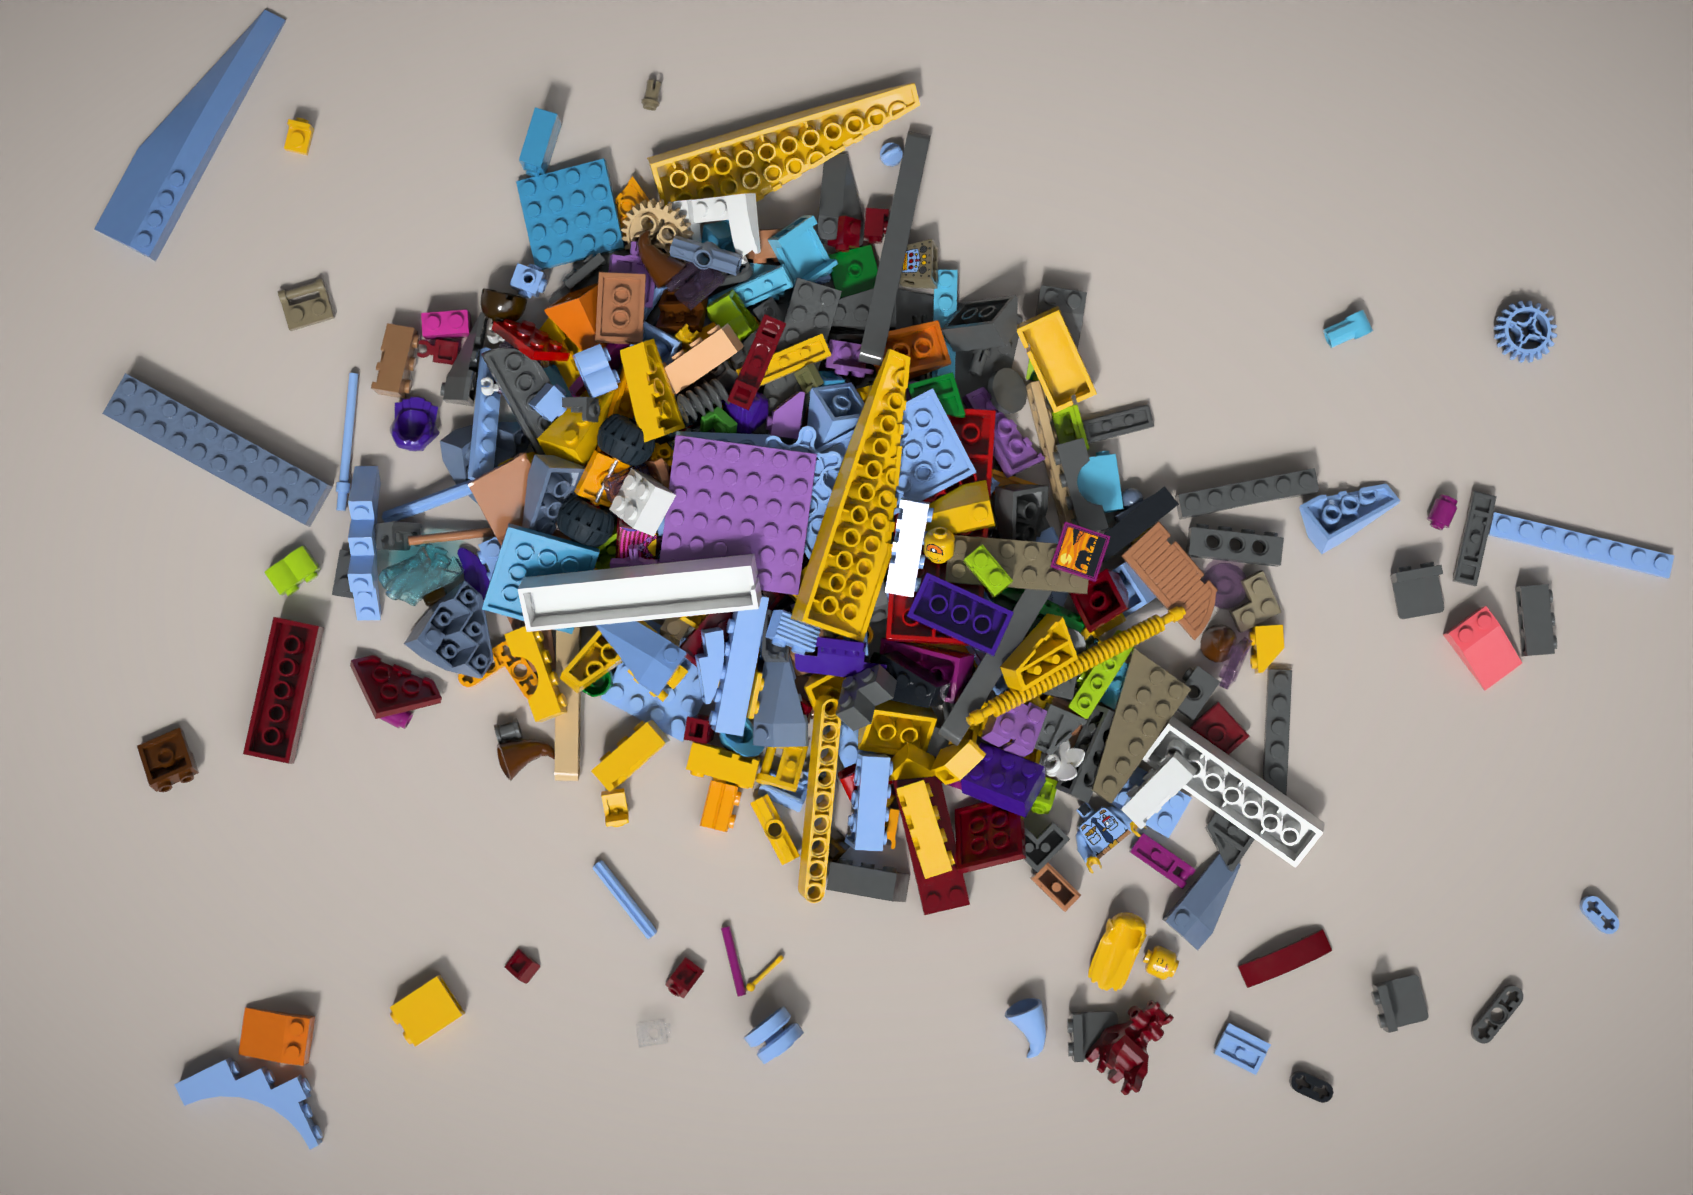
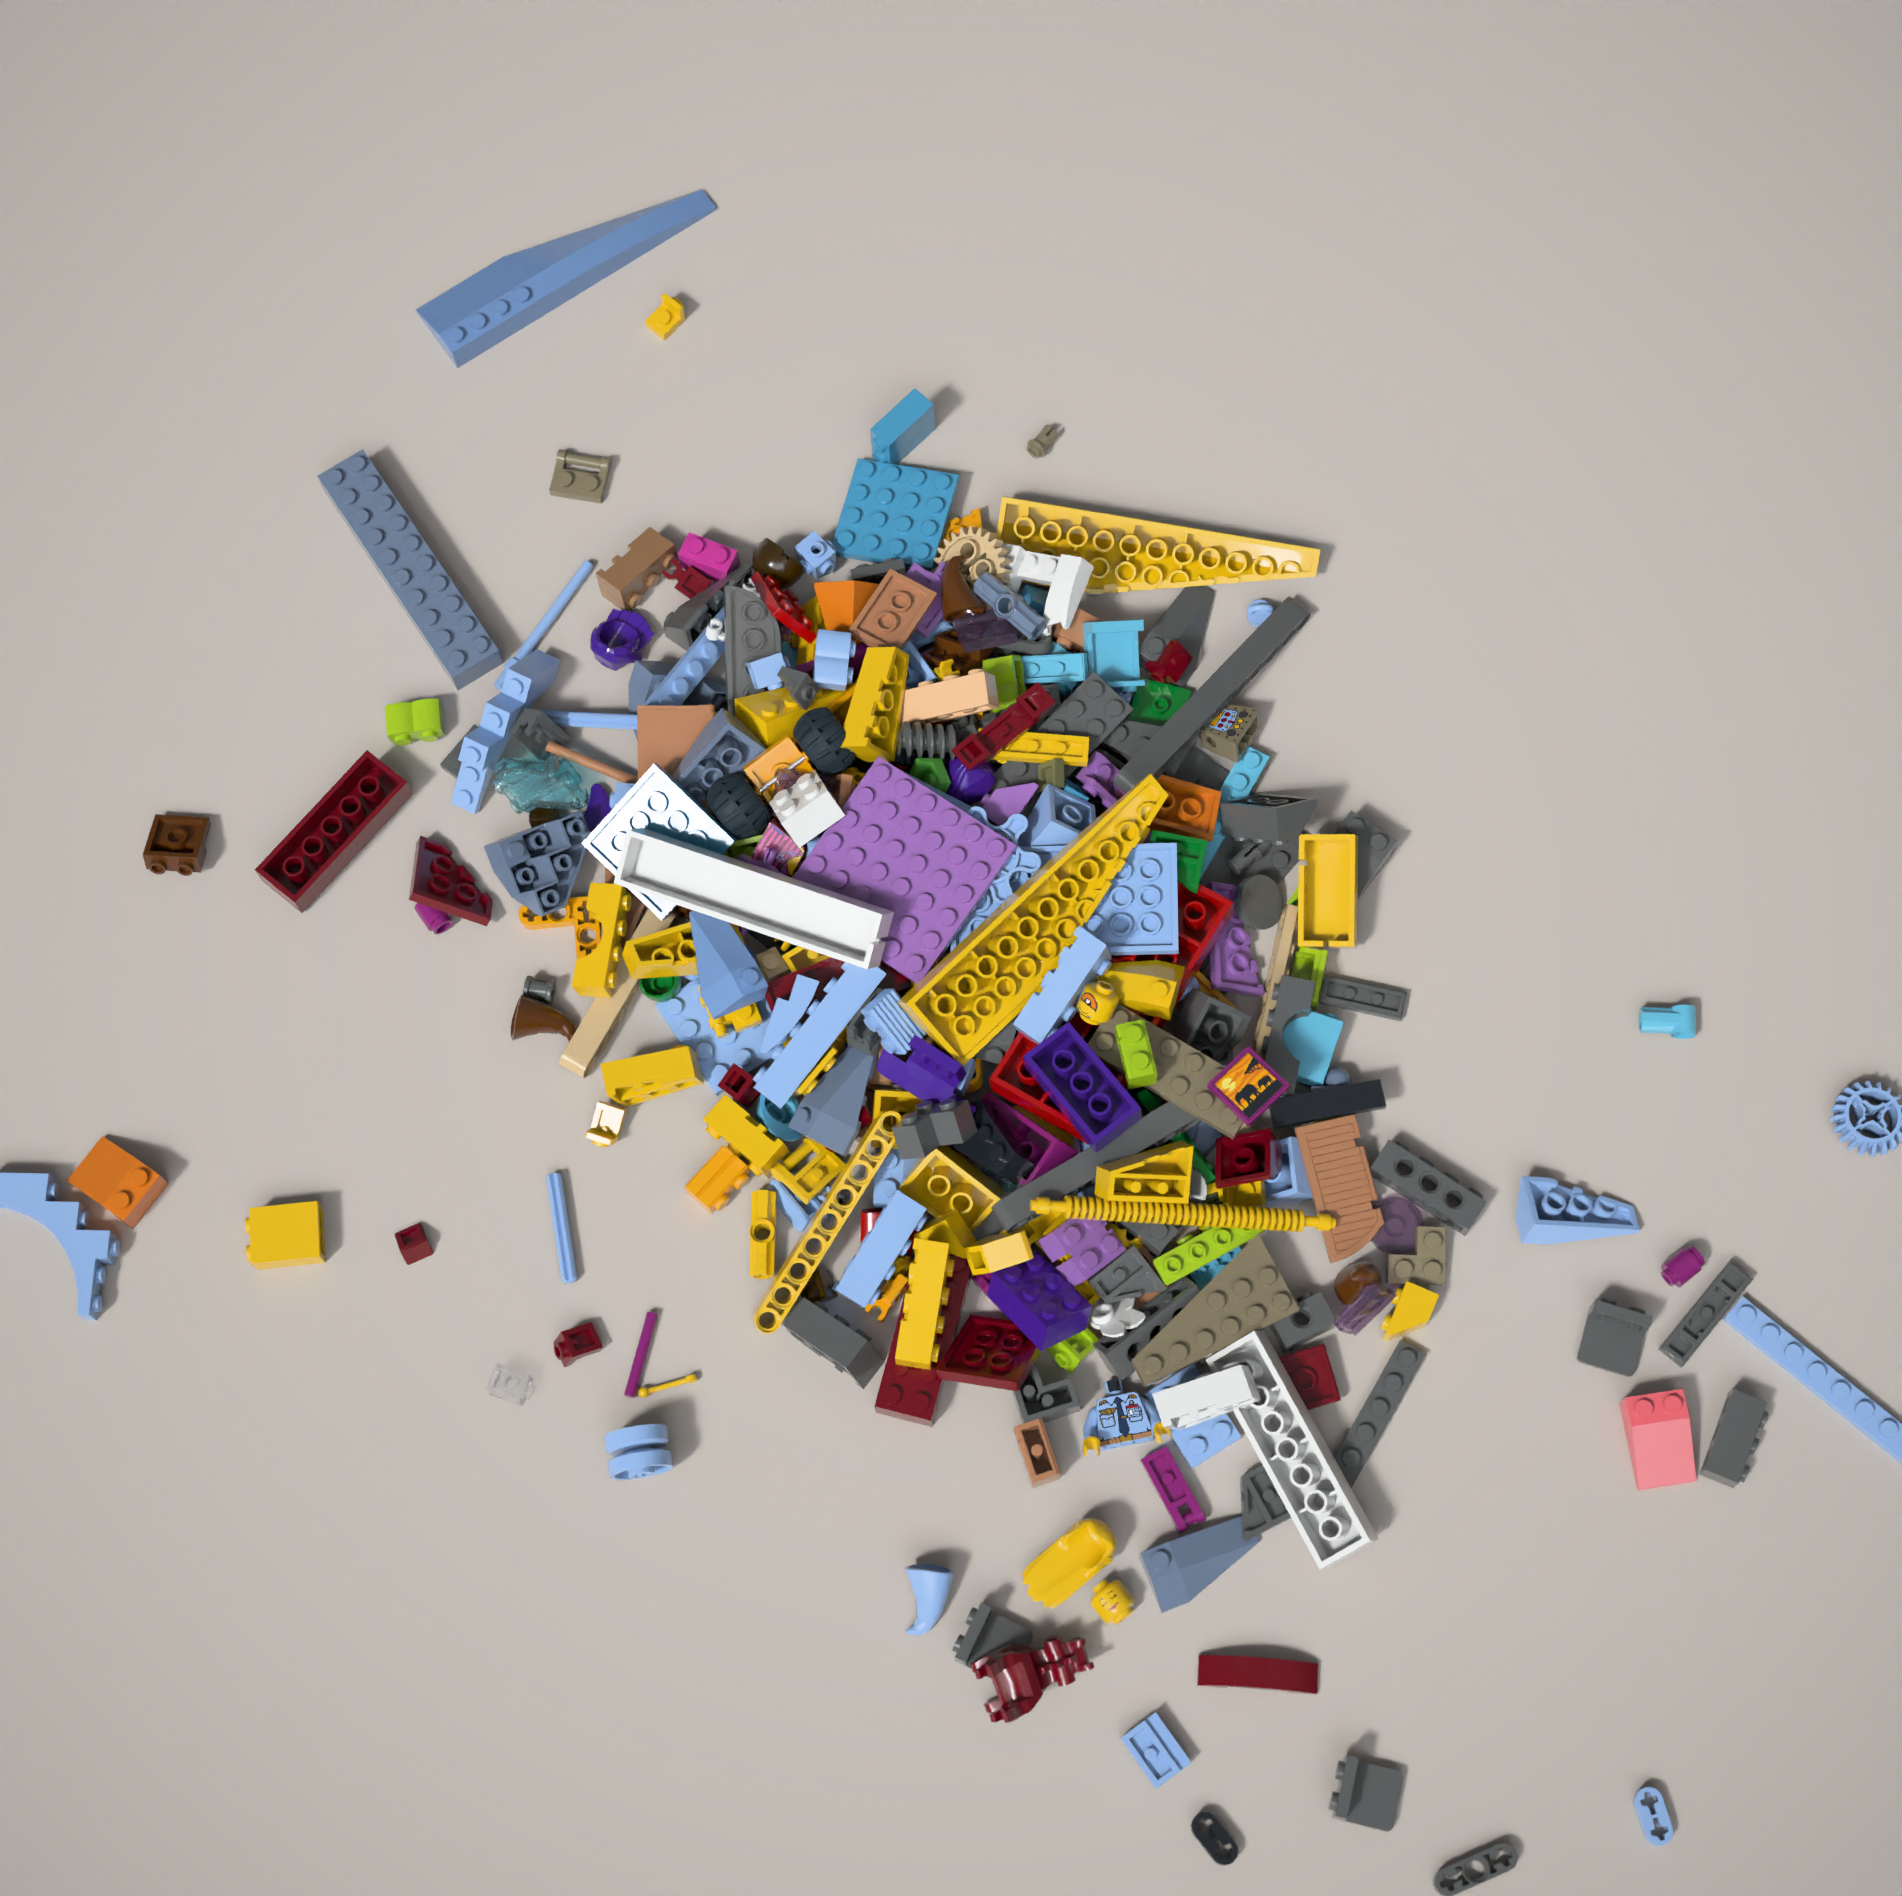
camera: 35 degrees right, 15 degrees down
(875, 224) = (1204, 668): dark red brick -> none
(1247, 493) = (1428, 1124): dark grey arch -> none

